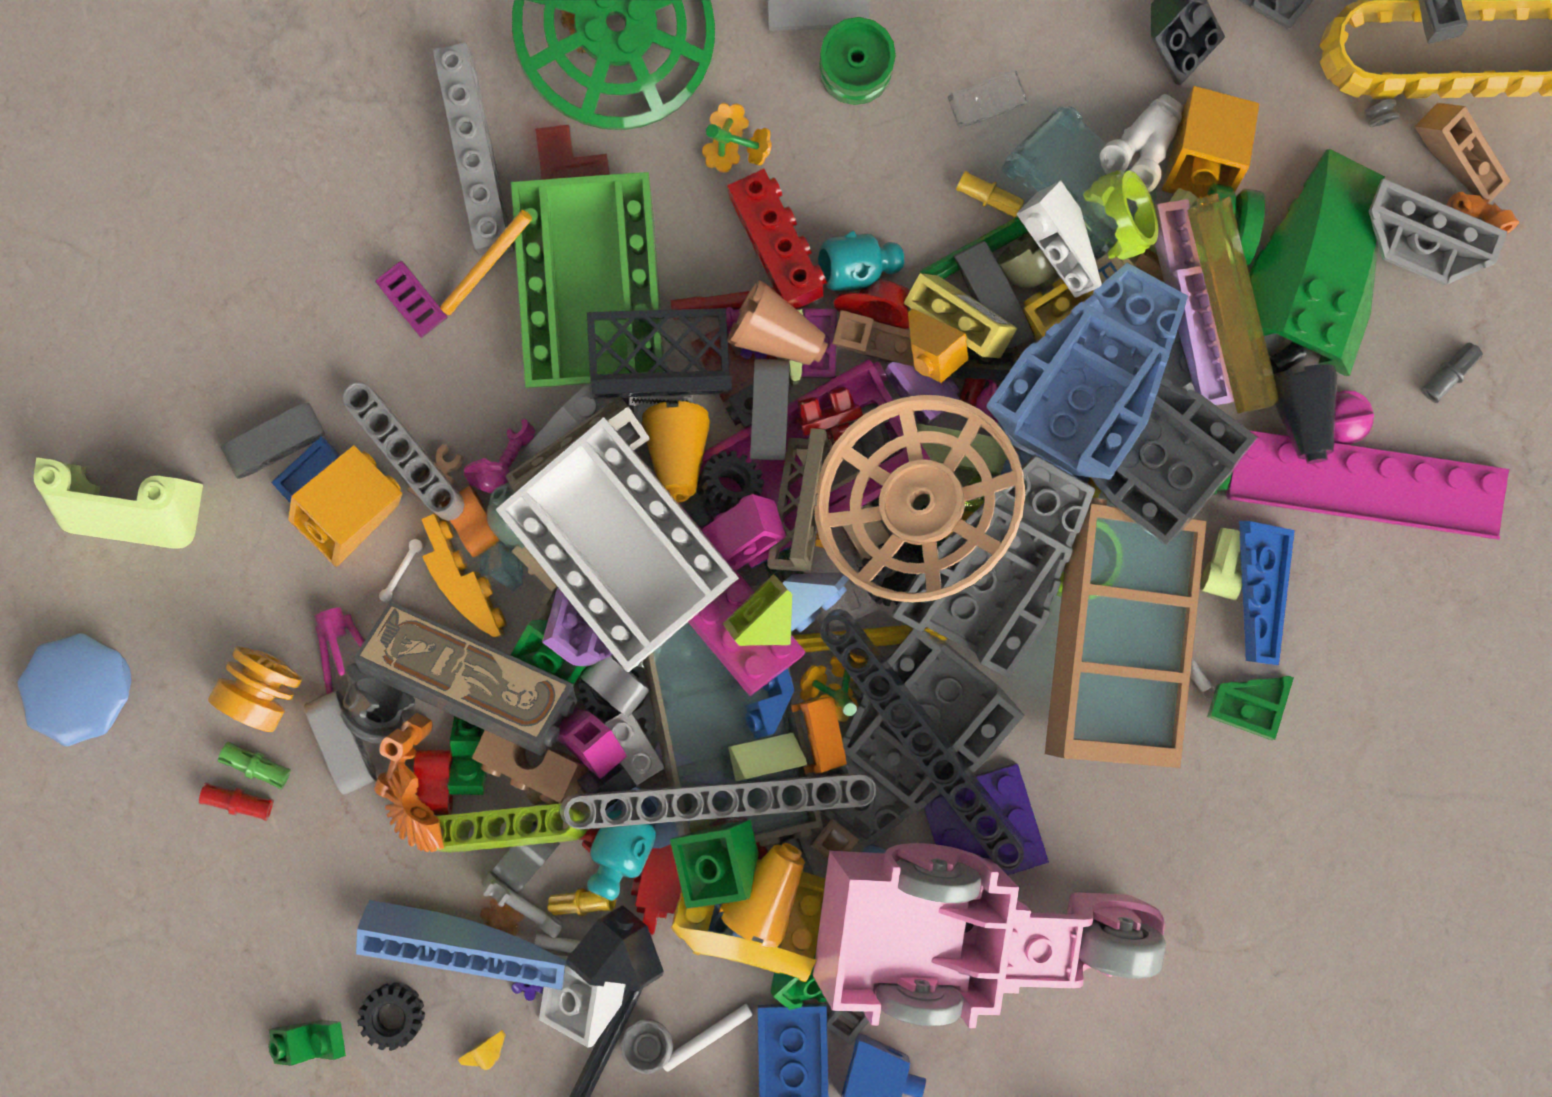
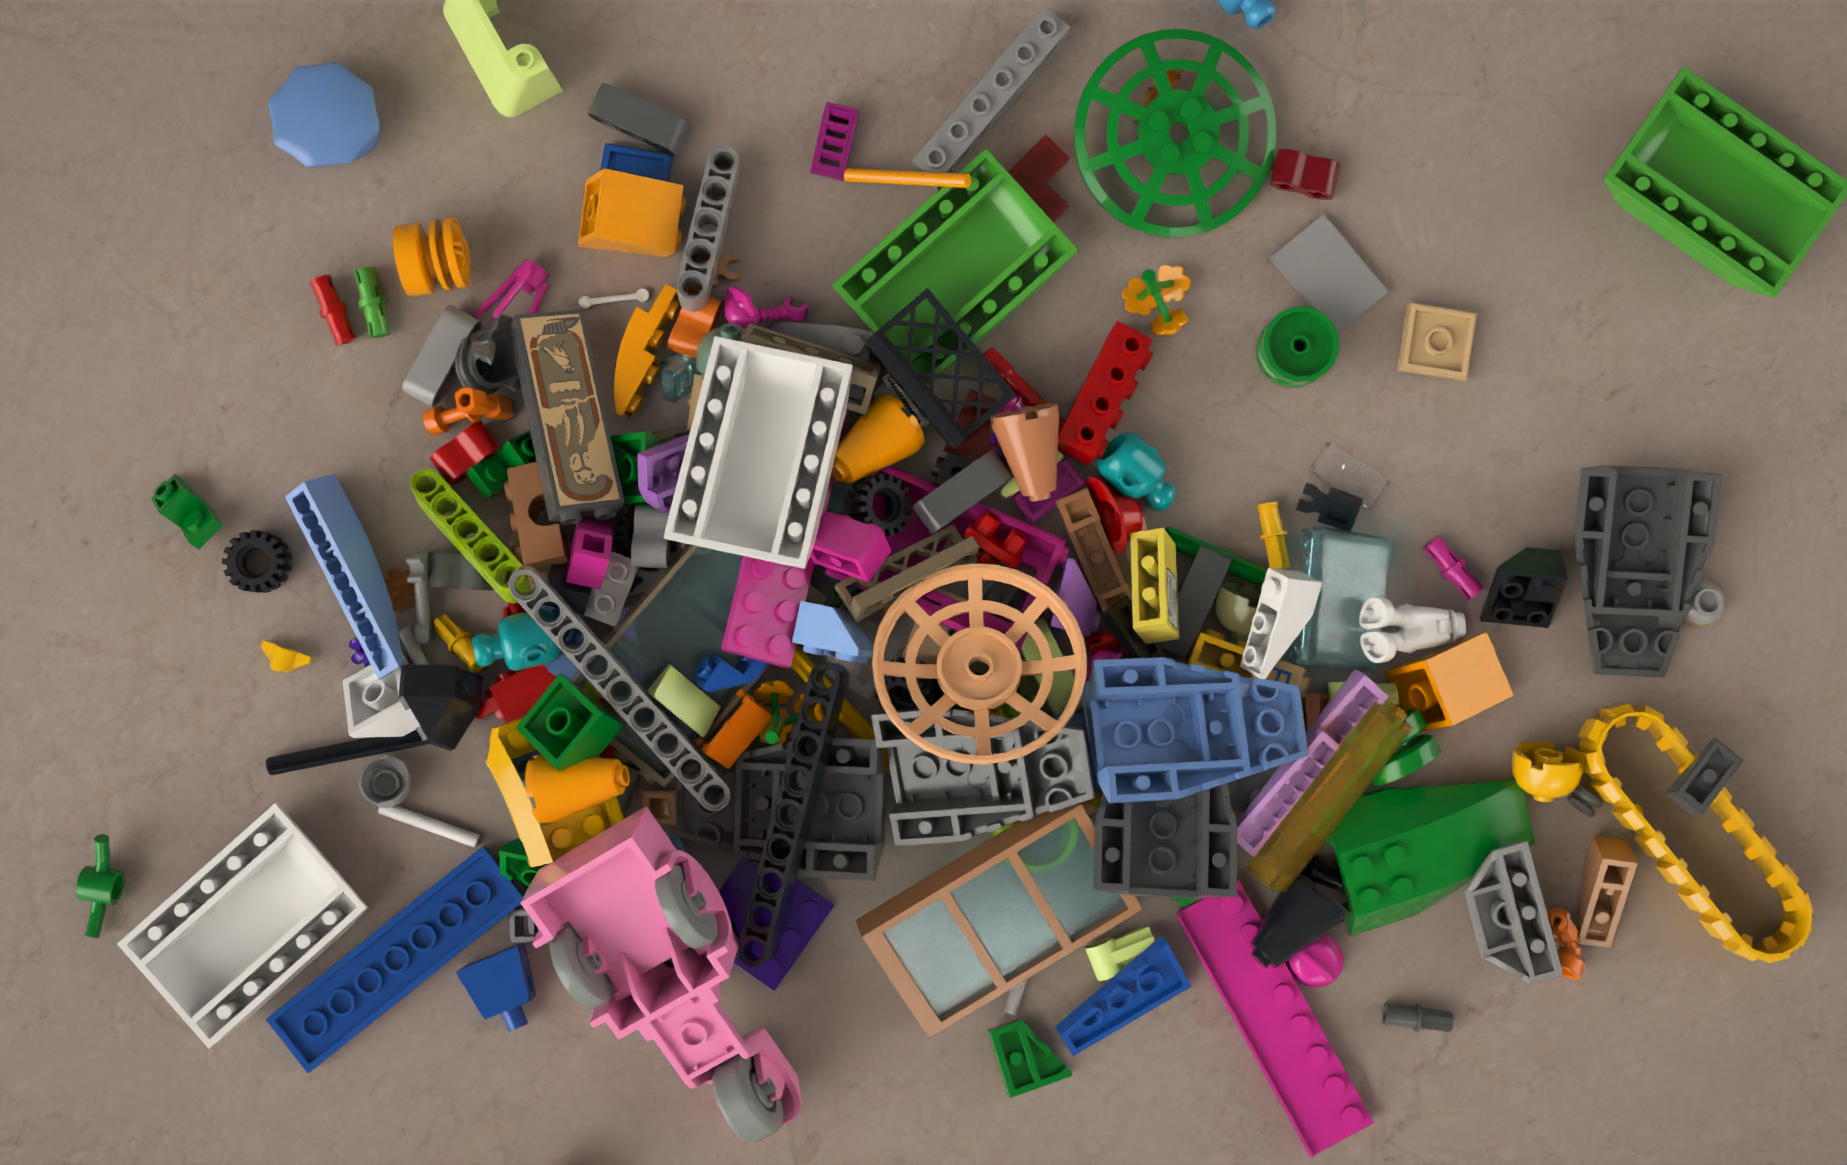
camera: 55 degrees right, 0 degrees up
(409, 814) = (426, 453): orange hair -> none
(763, 617) = (789, 611): lime slope -> none
(936, 346) = (1113, 584): light orange slope -> none
(1005, 130) = (1334, 509): none -> black plate
(1122, 74) = (1453, 568): none -> dark pink pin
(1131, 235) = (1340, 630): lime piece -> none
(1338, 123) = (1546, 771): none -> yellow cylinder

